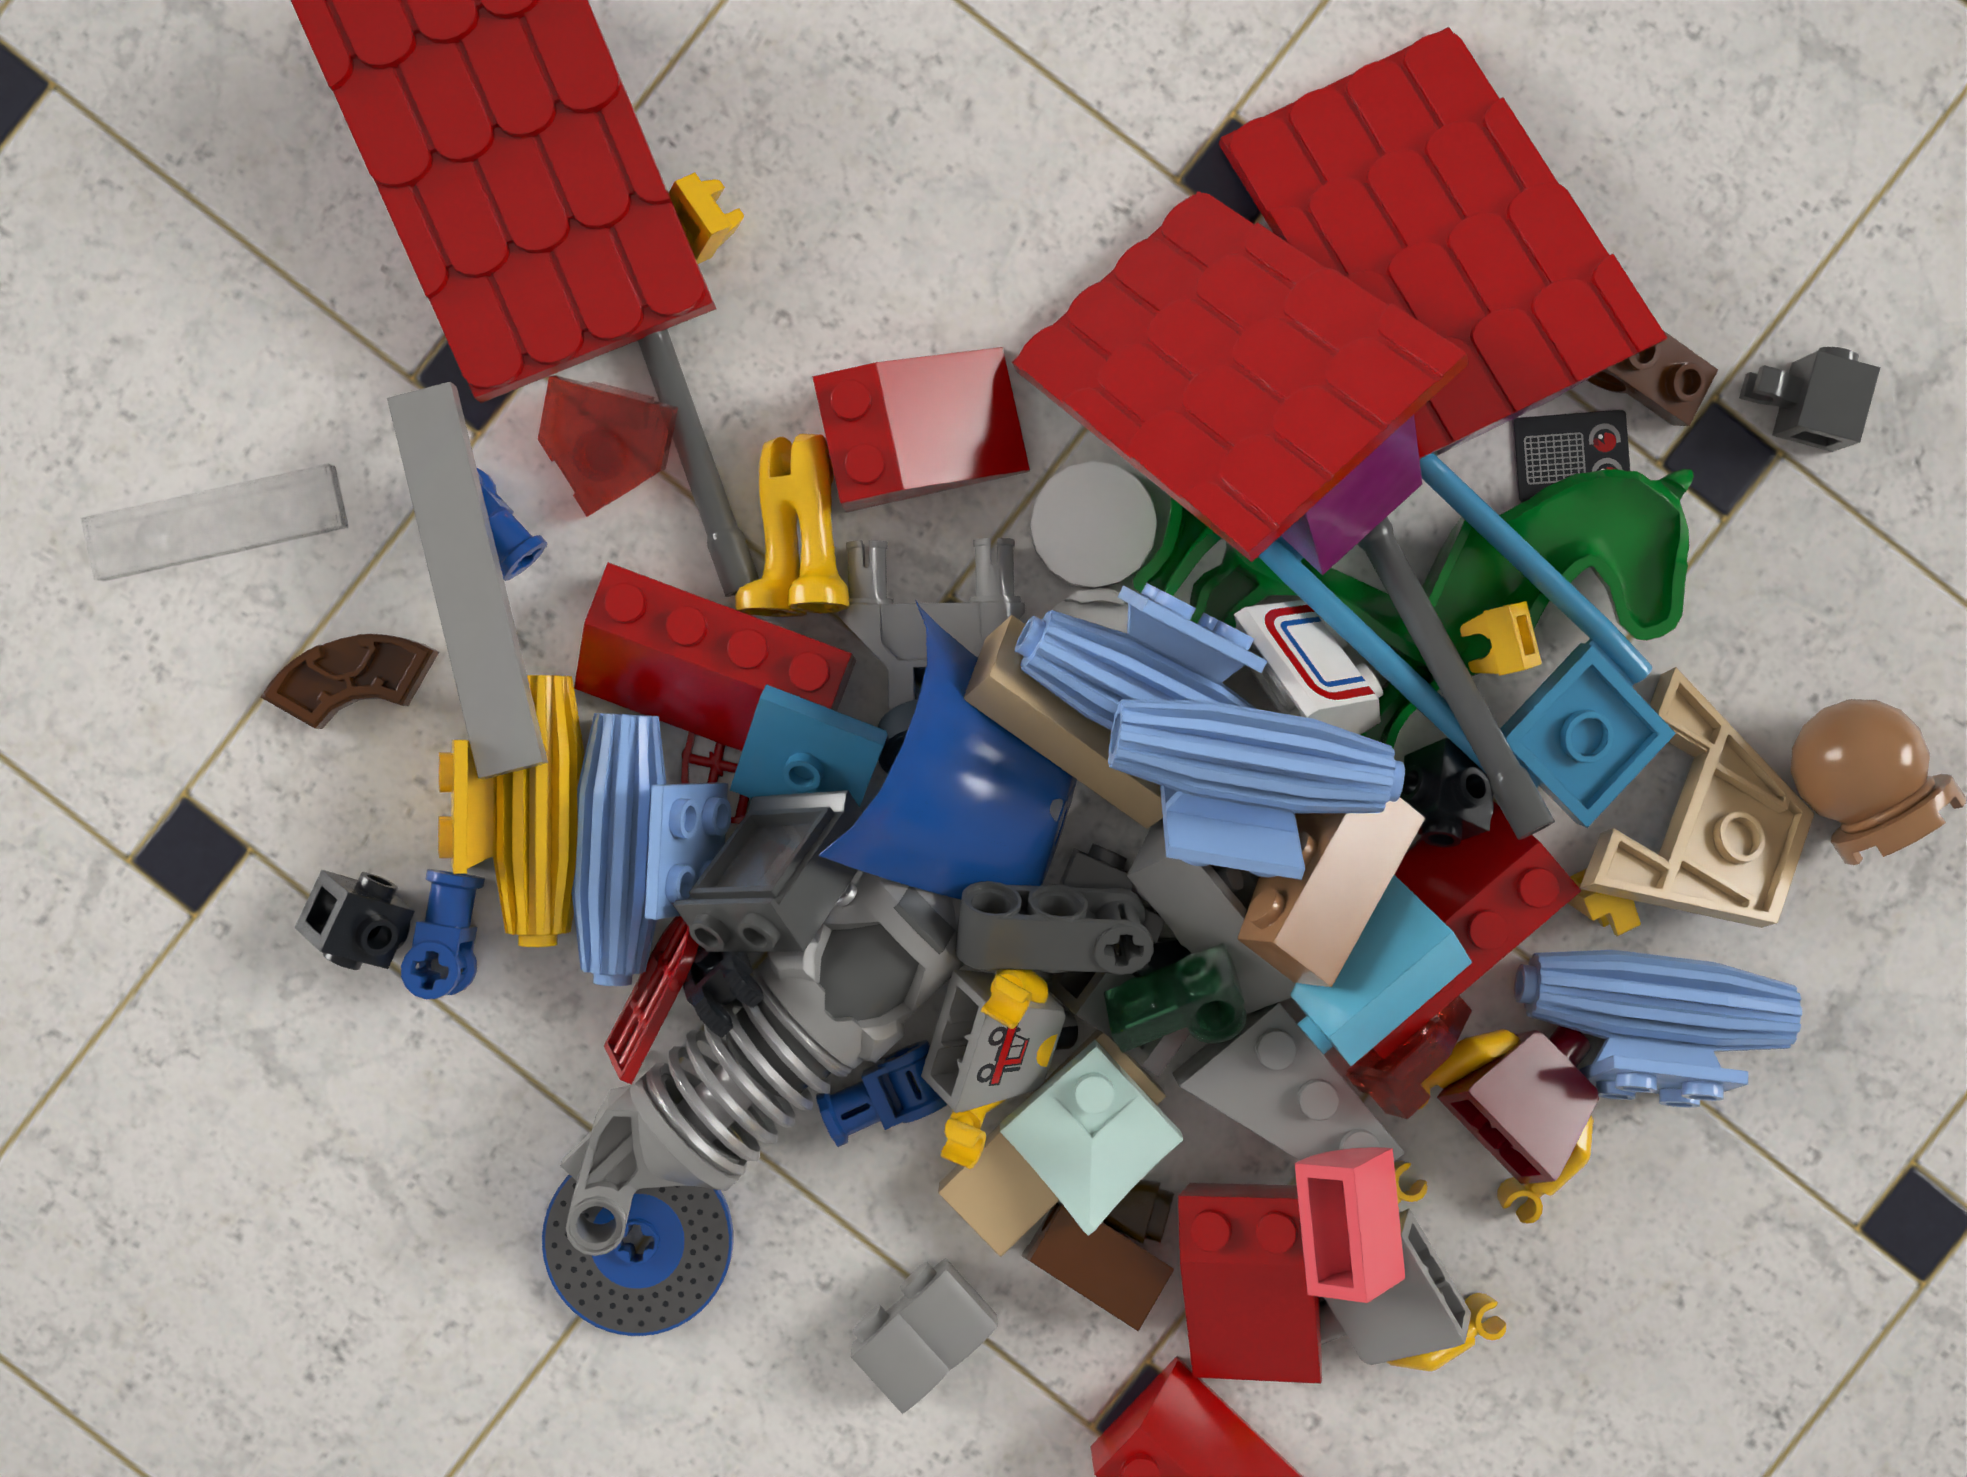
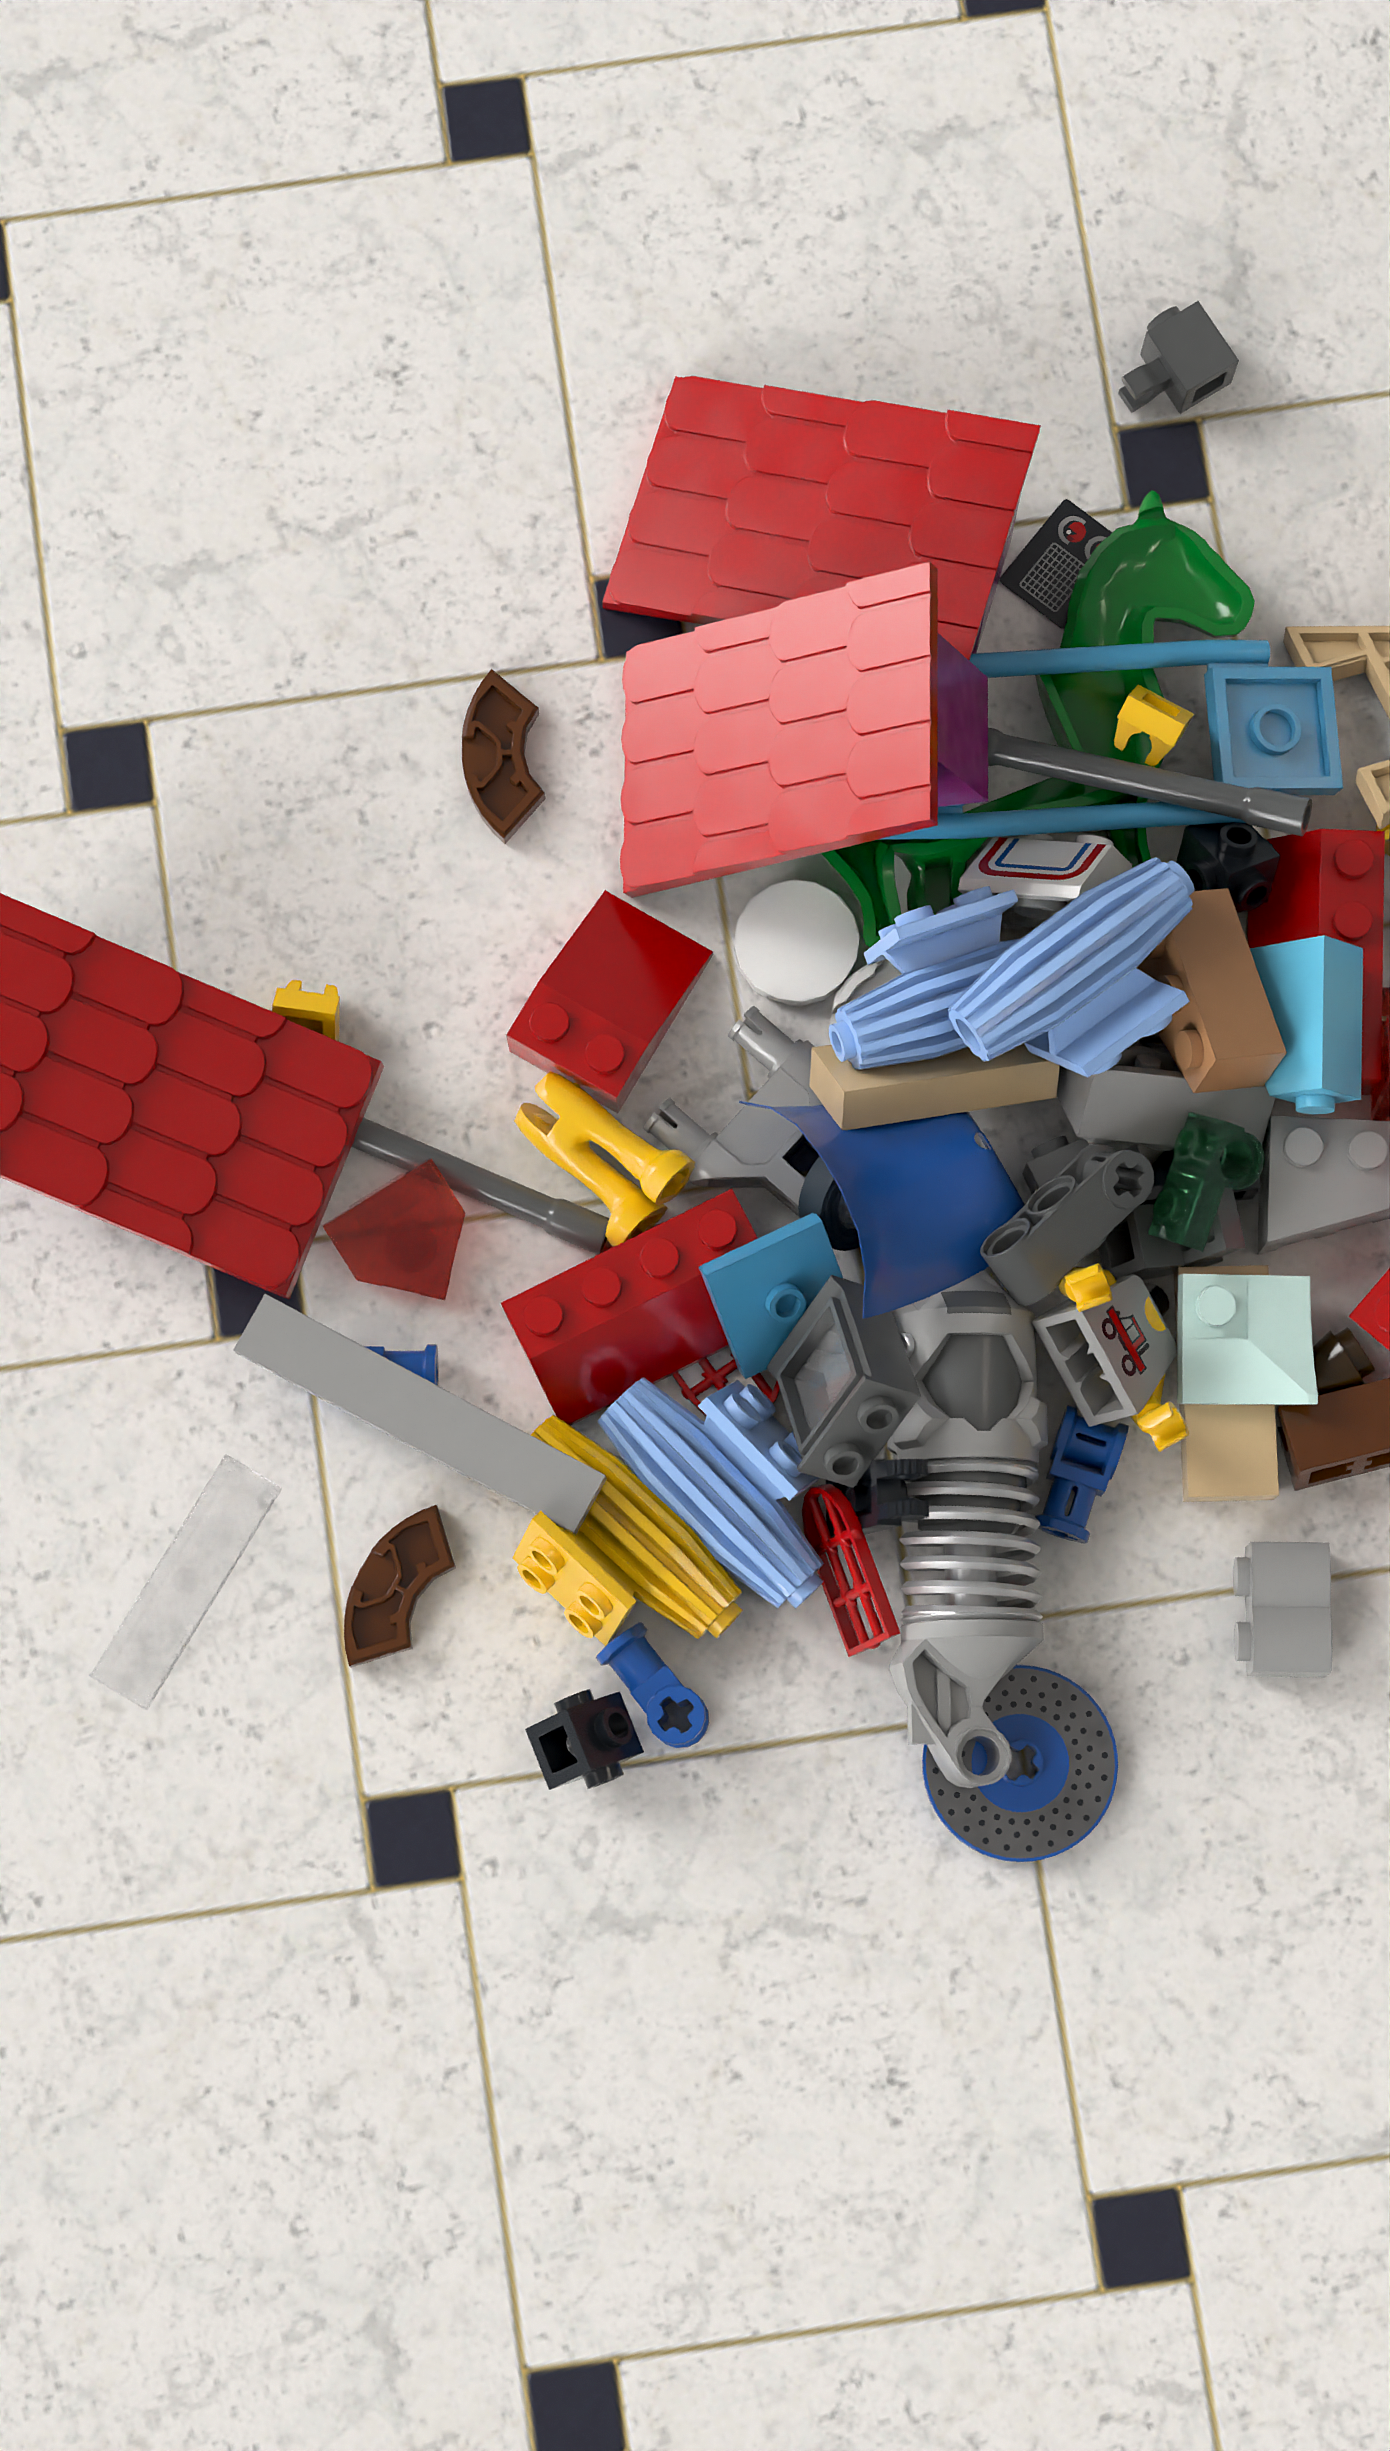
camera: 40 degrees left, 10 degrees down
(1029, 169) = (495, 756): none -> reddish brown tile
(1663, 379) = (1068, 452): reddish brown plate -> none

